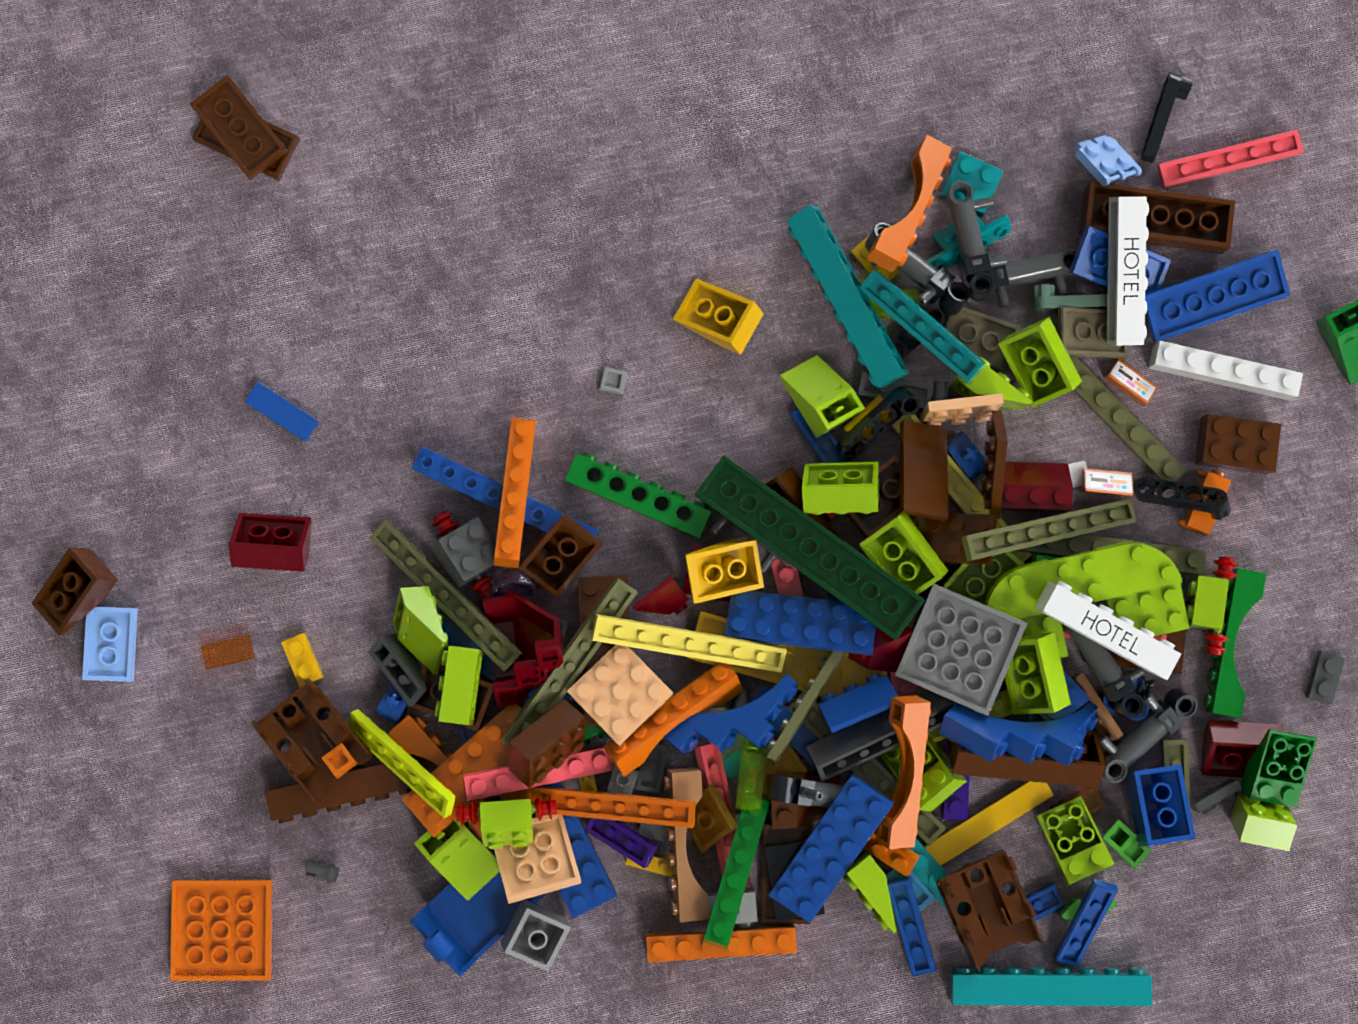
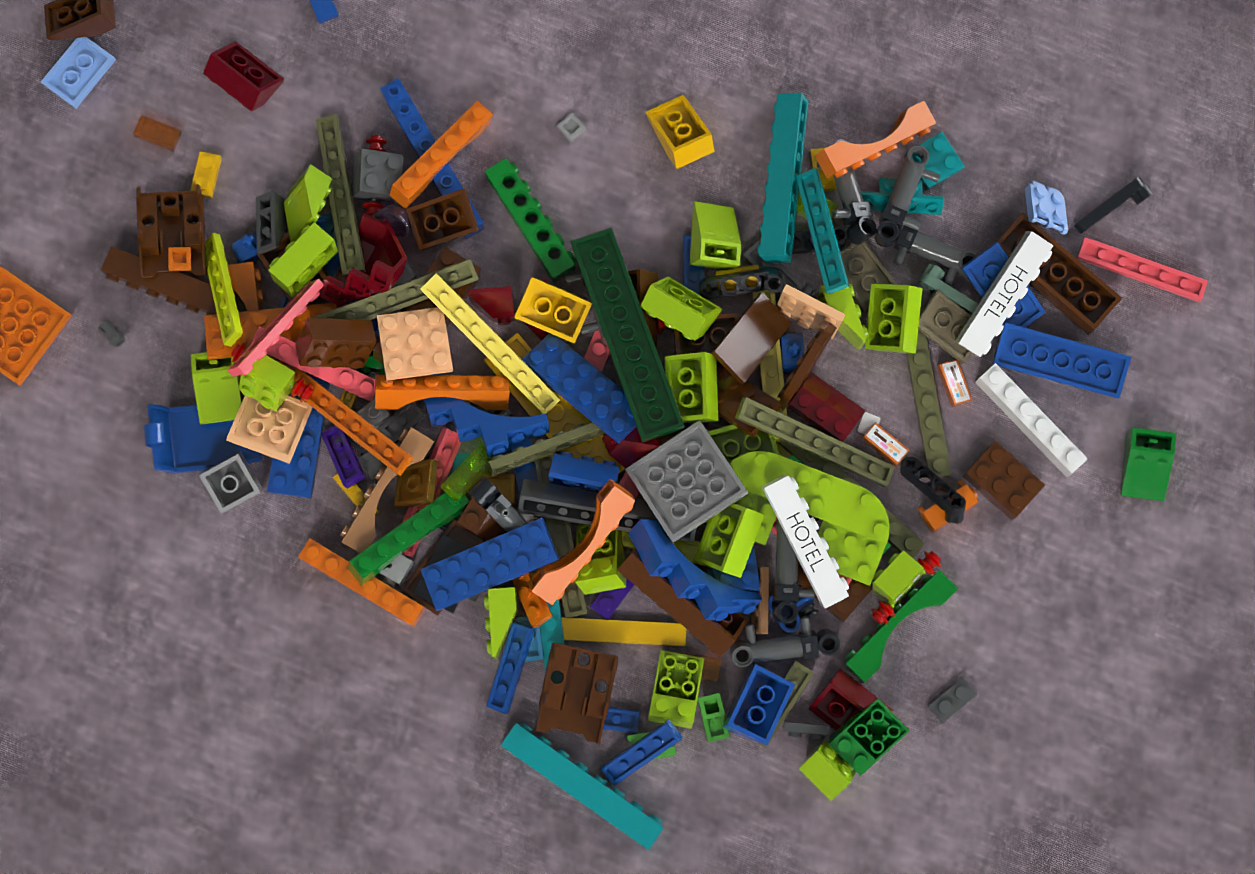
camera: 35 degrees right, 5 degrees down
(483, 770) = (270, 335): none -> coral plate

